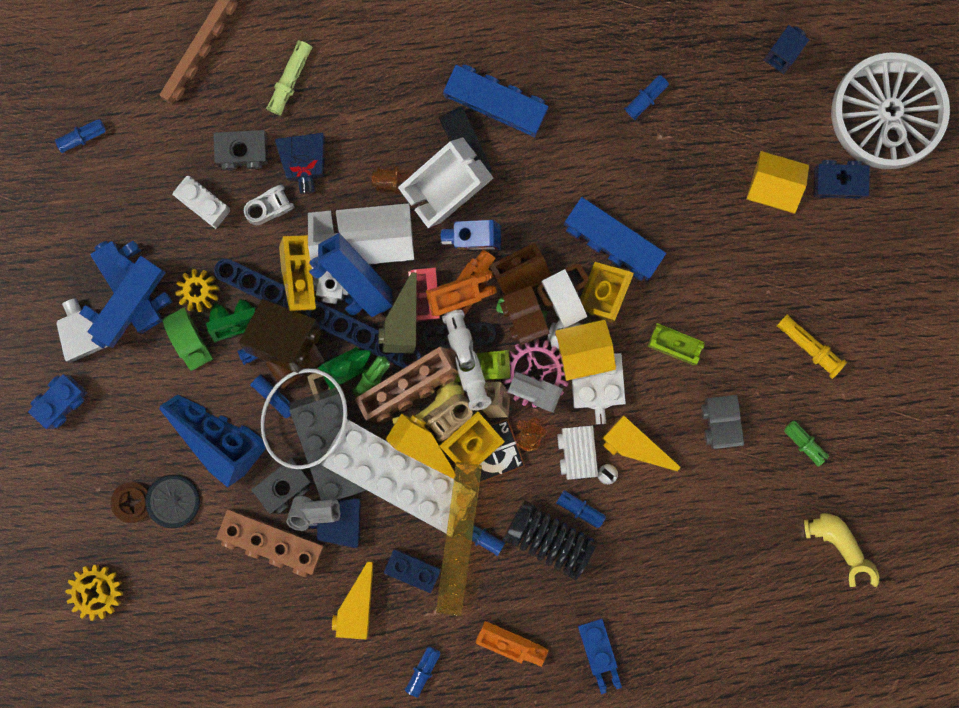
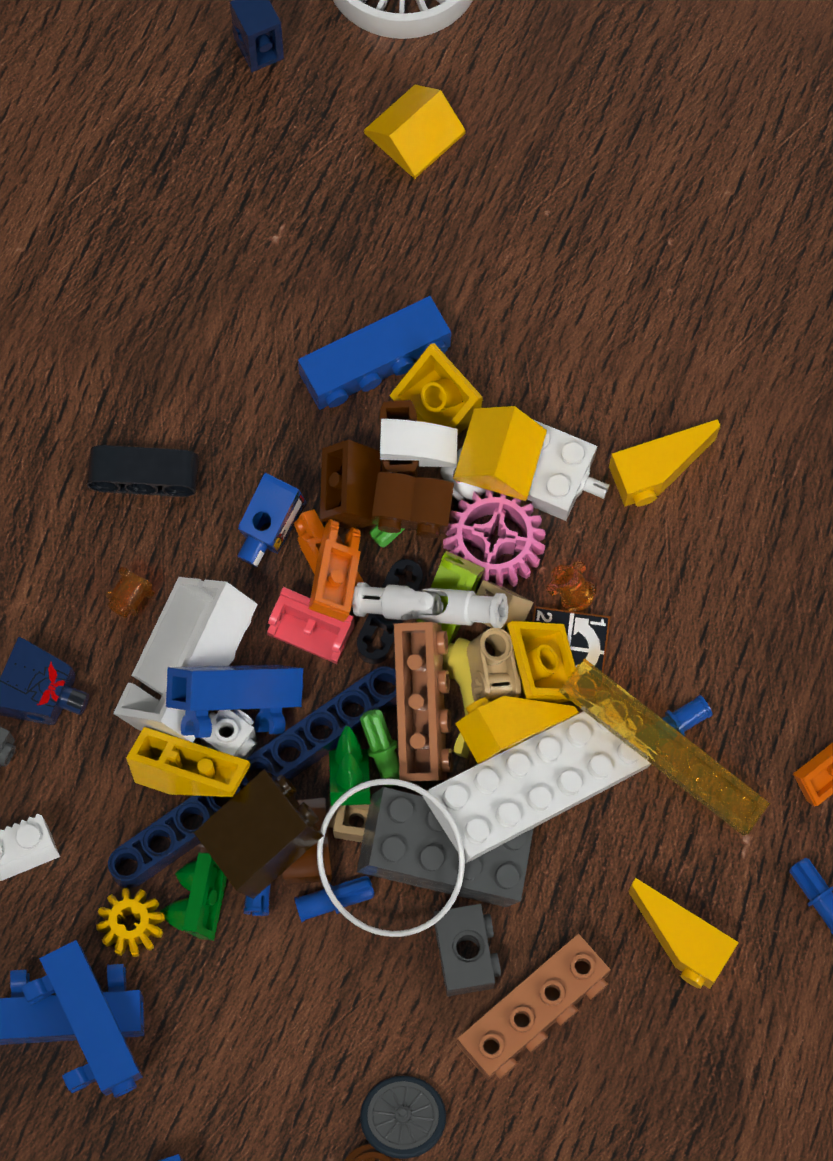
camera: 65 degrees left, 15 degrees down
(73, 333) = (92, 1119): white torso -> none
(186, 339) = (188, 969): bright green brick -> none
(220, 446) = (360, 1008): blue wedge -> none
(269, 204) = (71, 760): white piece -> none
(306, 512) = (519, 929): light grey piece -> none
(346, 530) = (554, 901): dark blue torso -> none
(400, 324) = (337, 668): olive slope -> none
(412, 570) = (674, 833): dark blue brick -> none
(445, 182) = (179, 512): white piece -> none
(495, 100) = (109, 403): blue brick -> none
(540, 393) = (528, 535): light grey piece -> none
(552, 533) = (727, 631): black piece -> none
(578, 452) = (628, 539): white brick -> none
(581, 509) = (705, 577): blue axle -> none
(604, 478) = (679, 527): white hinge -> none
(646, 97) = (216, 224): blue axle -> none
(676, 344) = (554, 351): lime hinge -> none
(723, 422) = (685, 343): dark grey brick -> none
(806, 443) = (766, 261): bright green axle -> none
(820, 353) = (659, 188): yellow pin -> none
(828, 186) = (456, 55): dark blue brick -> none

